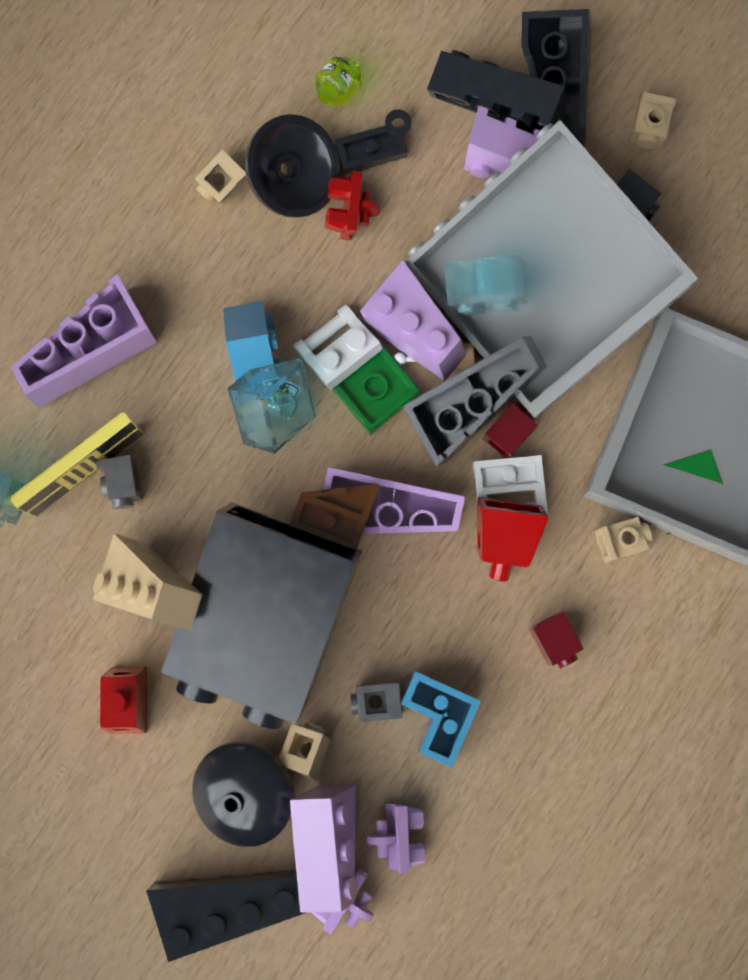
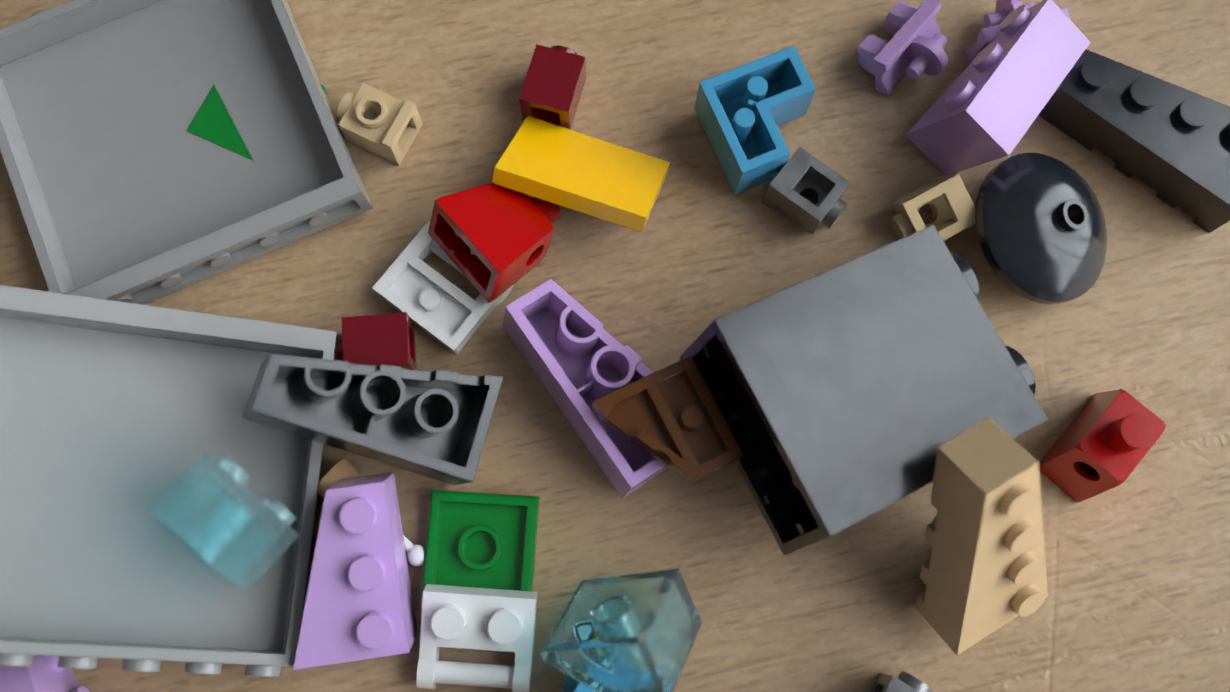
camera: 140 degrees left, 5 degrees down
(497, 605) = (582, 173): none -> yellow tile

